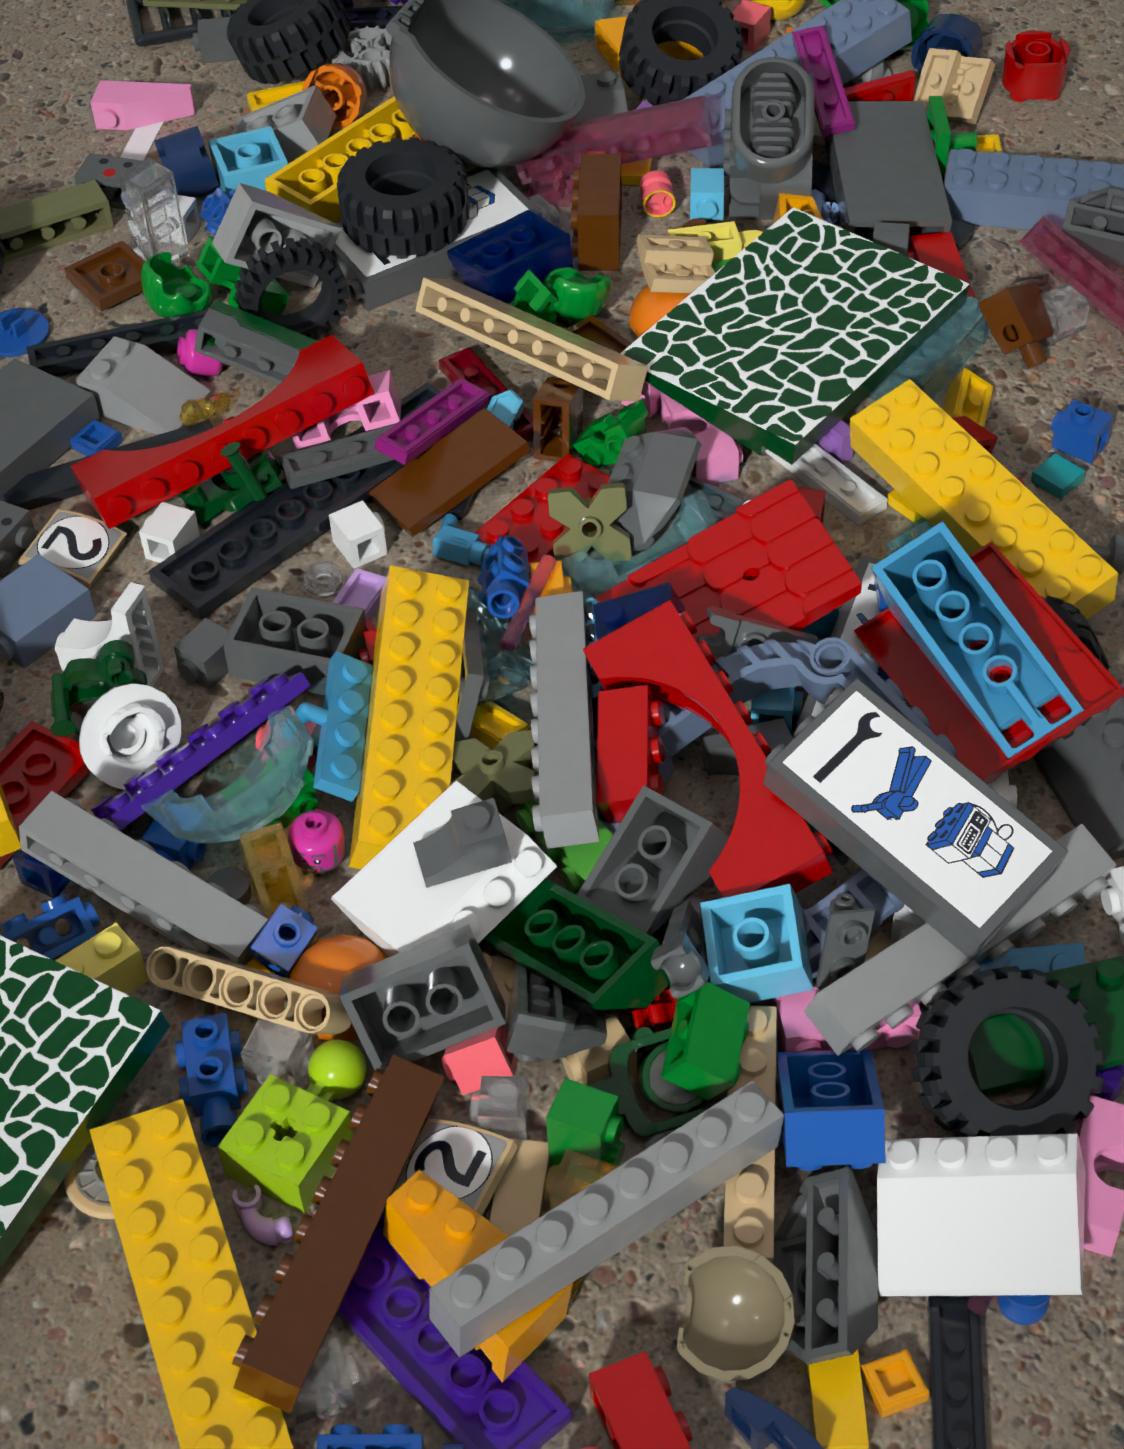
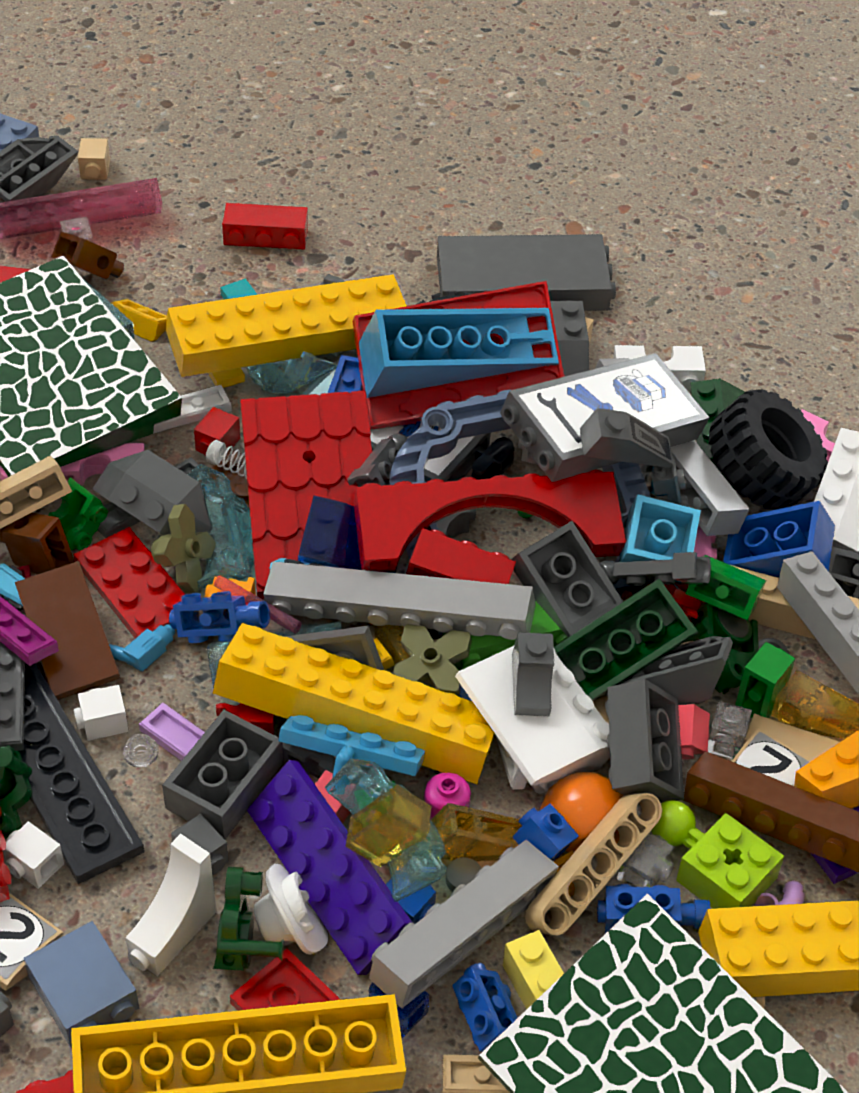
camera: 80 degrees left, 0 degrees up
(213, 764) = (389, 826): none -> clear yellow brick
(842, 831) = (624, 439): none -> dark grey slope
(1081, 431) = (207, 266): blue brick -> none

